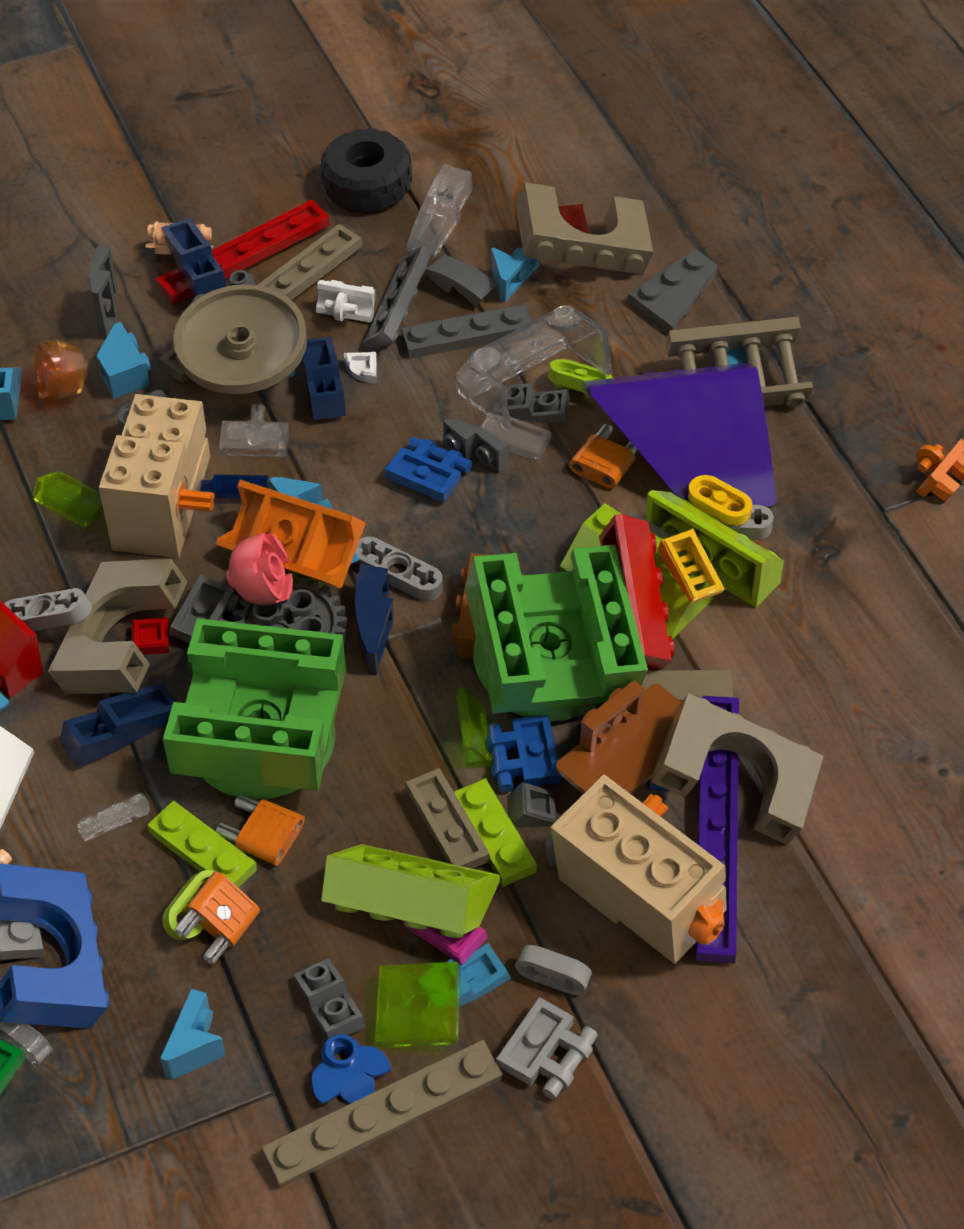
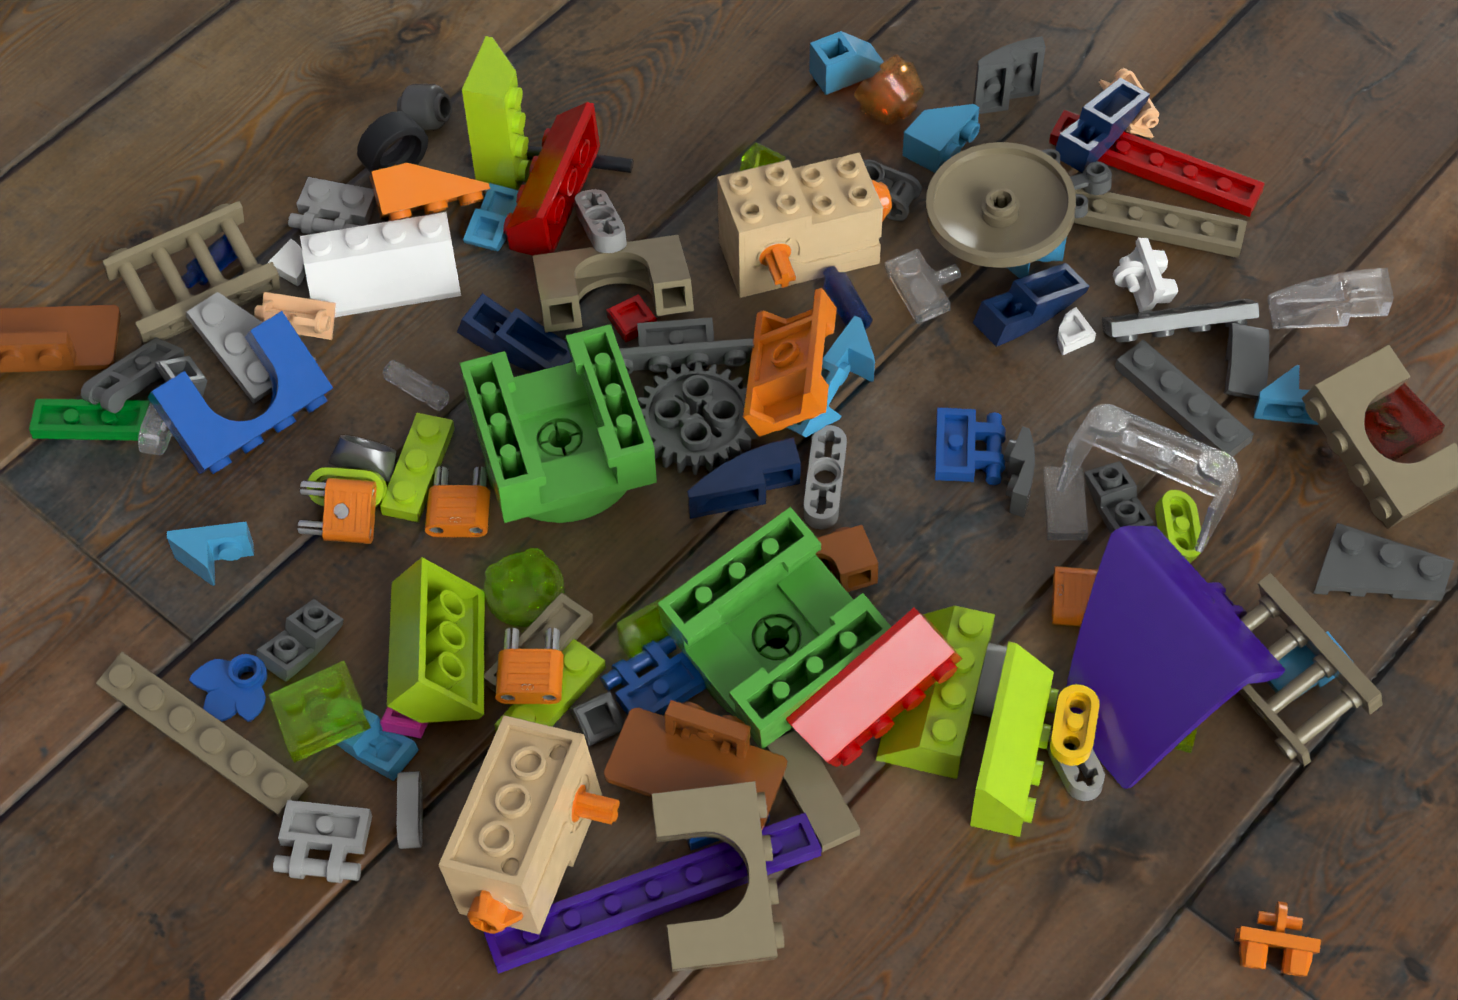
camera: 65 degrees right, 5 degrees up
(167, 880) = (364, 454): none -> flat silver piece
(259, 571) = (720, 356): coral cylinder -> none
(366, 170) = (1333, 233): black tyre -> none
(377, 812) = (522, 586): none -> clear neon green tile
(478, 828) = (529, 674): none -> orange piece
(690, 543) = (948, 691): yellow slope -> none

